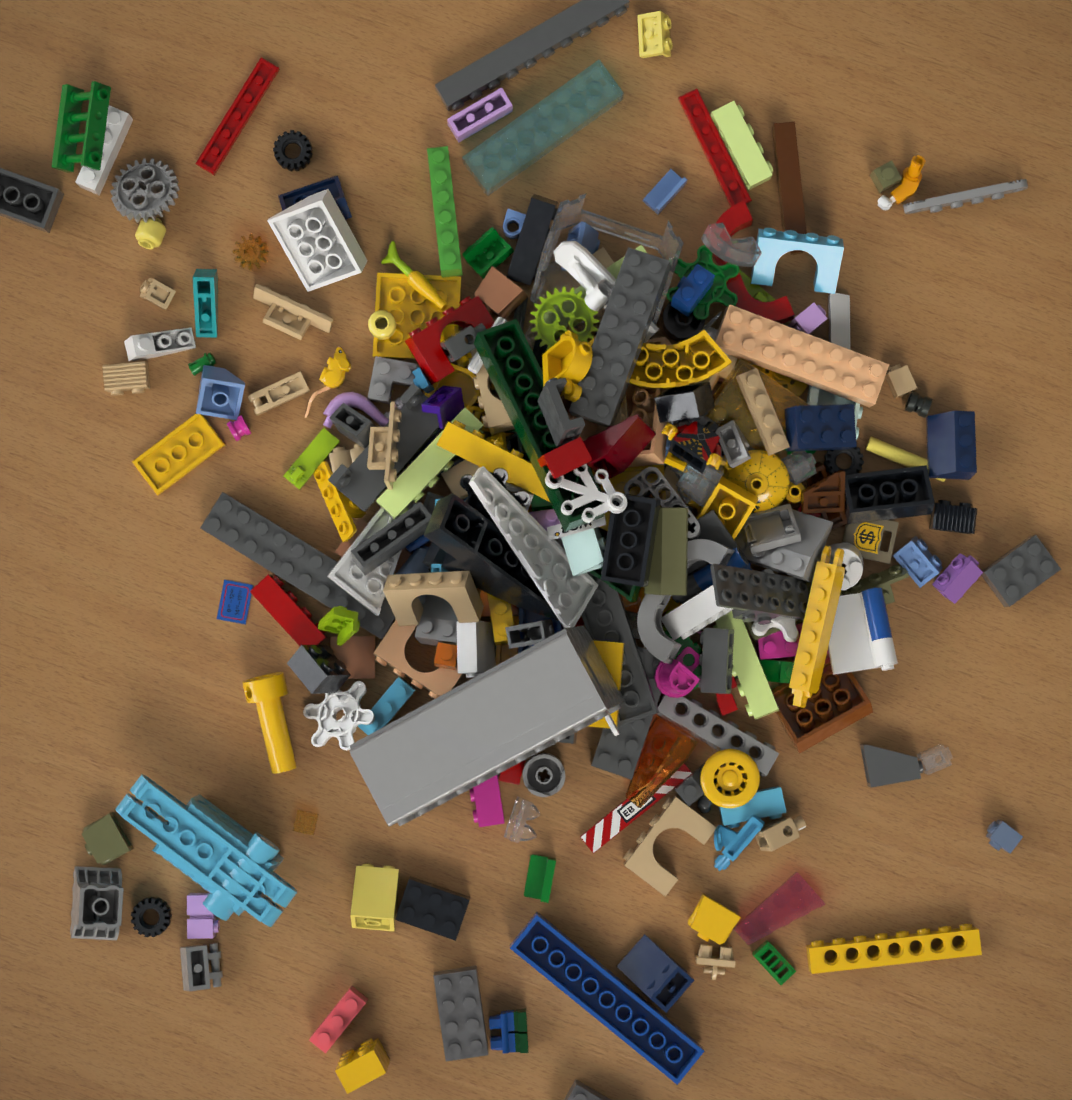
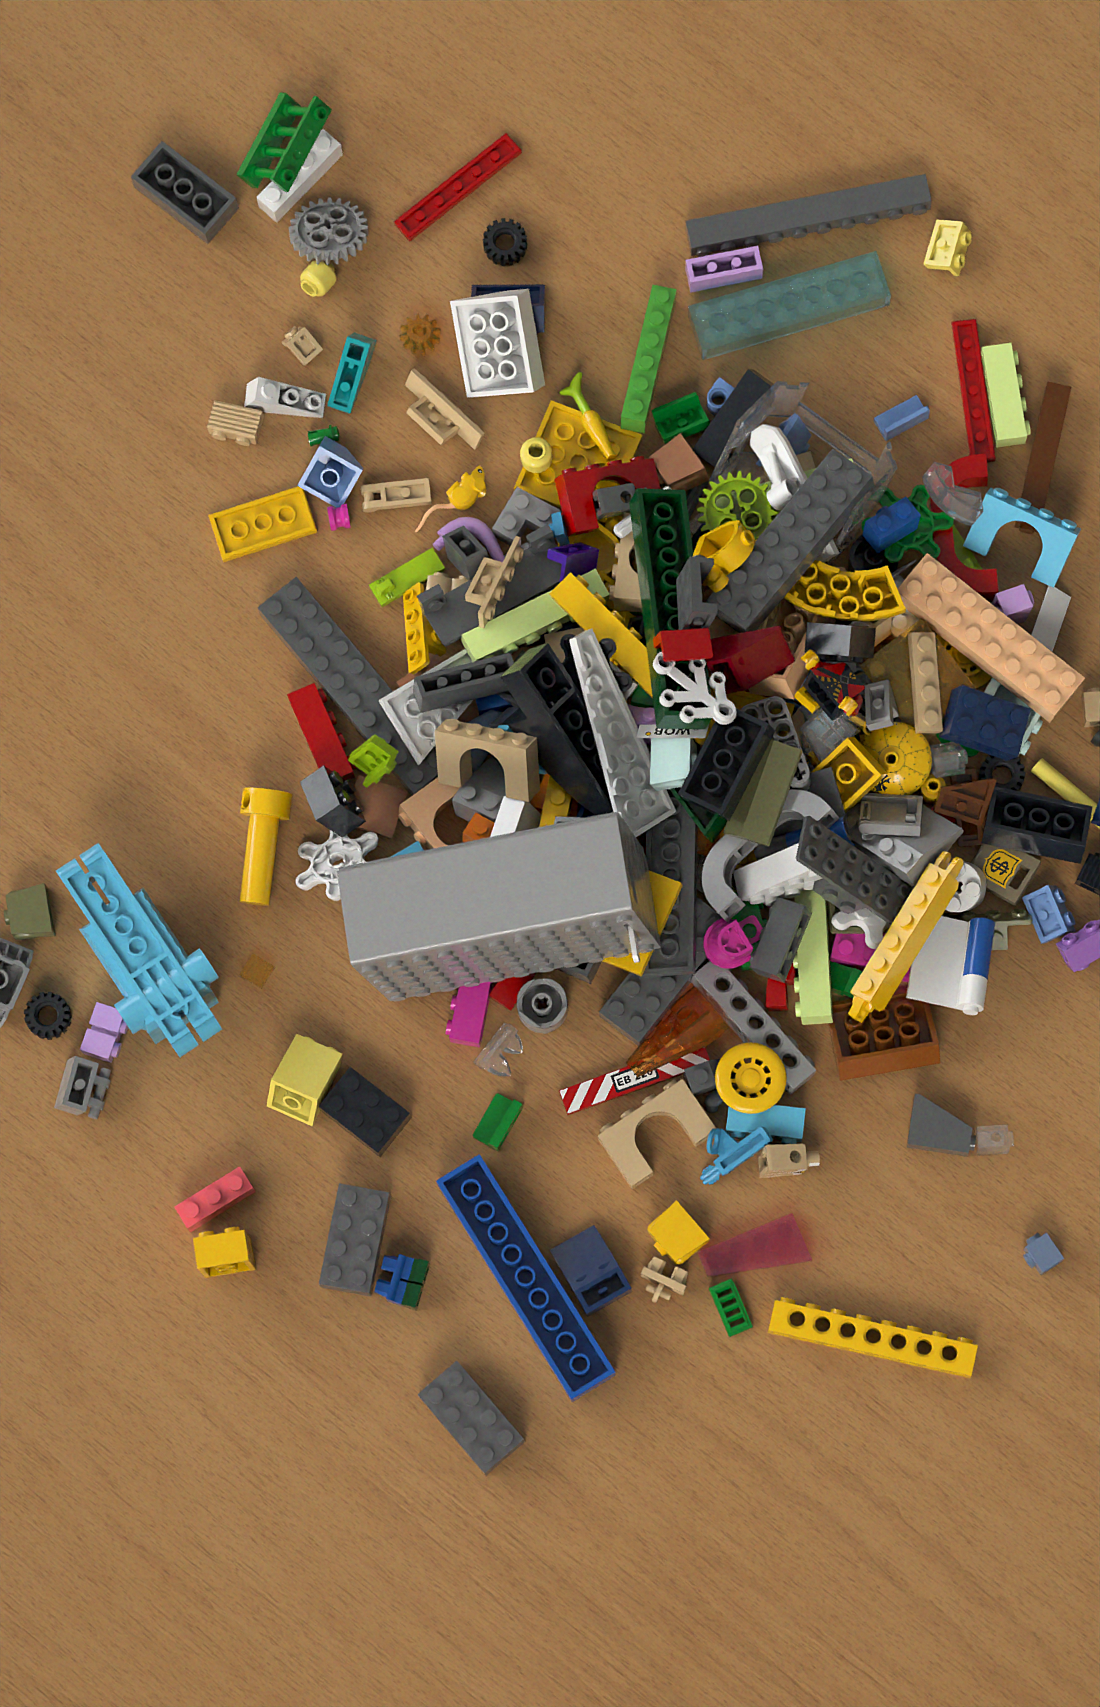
camera: 30 degrees right, 10 degrees down
(234, 602) = (265, 705): blue sticker -> none

